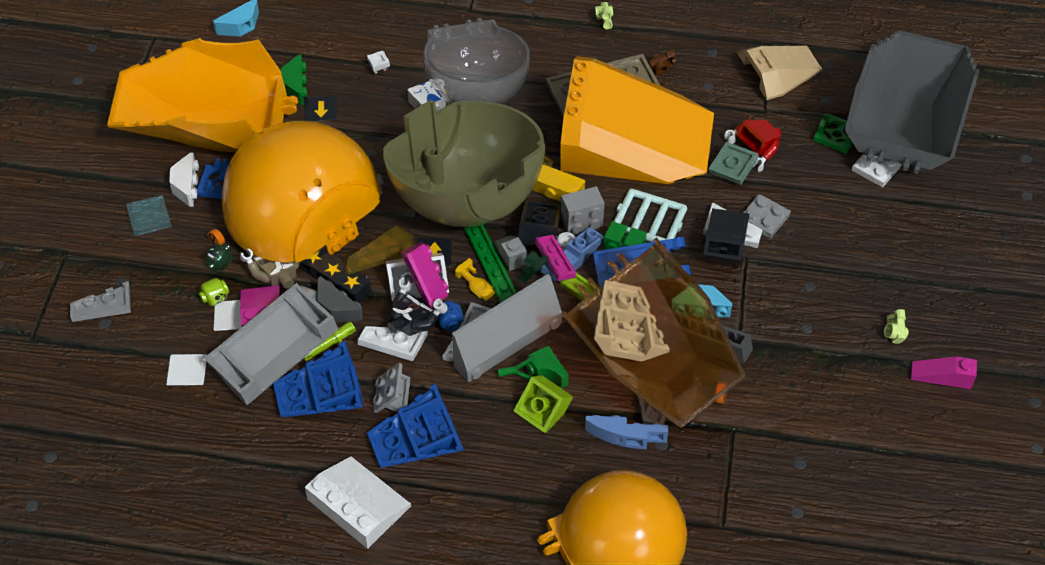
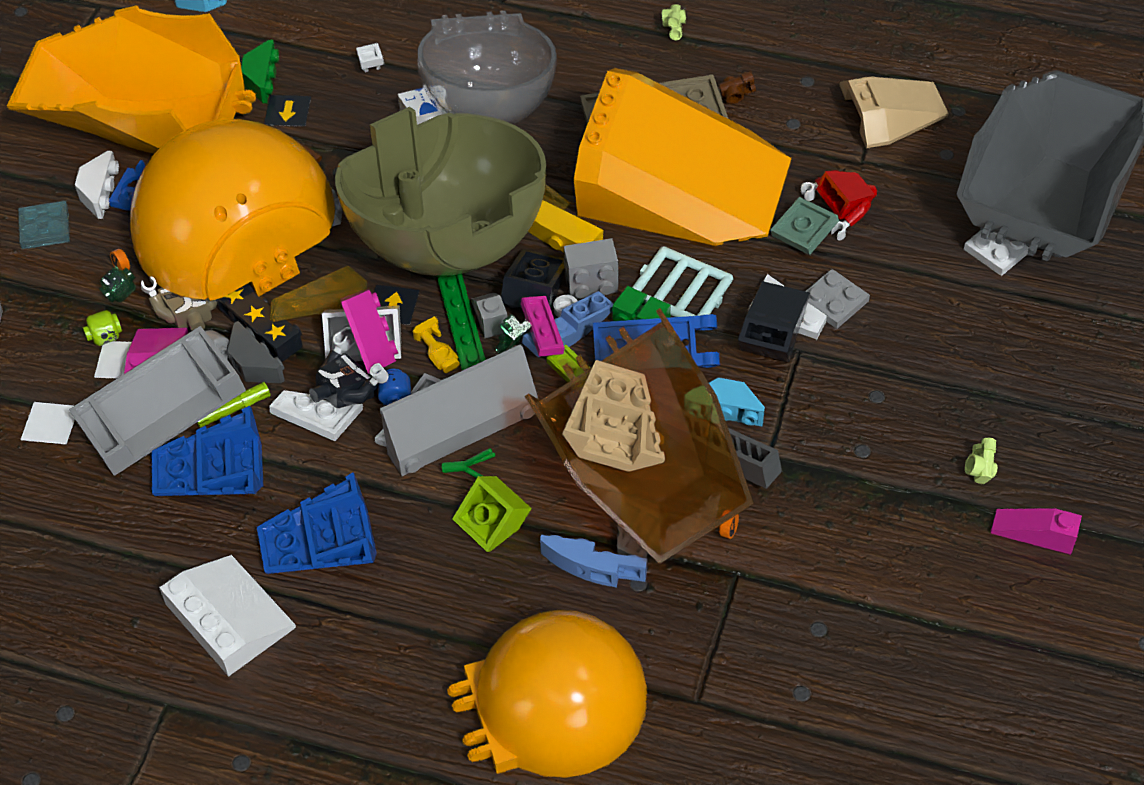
camera: 10 degrees right, 0 degrees up
(391, 390) = (300, 475): light grey bracket -> none
(548, 366) = (507, 466): green arch -> none
(821, 138) = (930, 204): green piece -> none

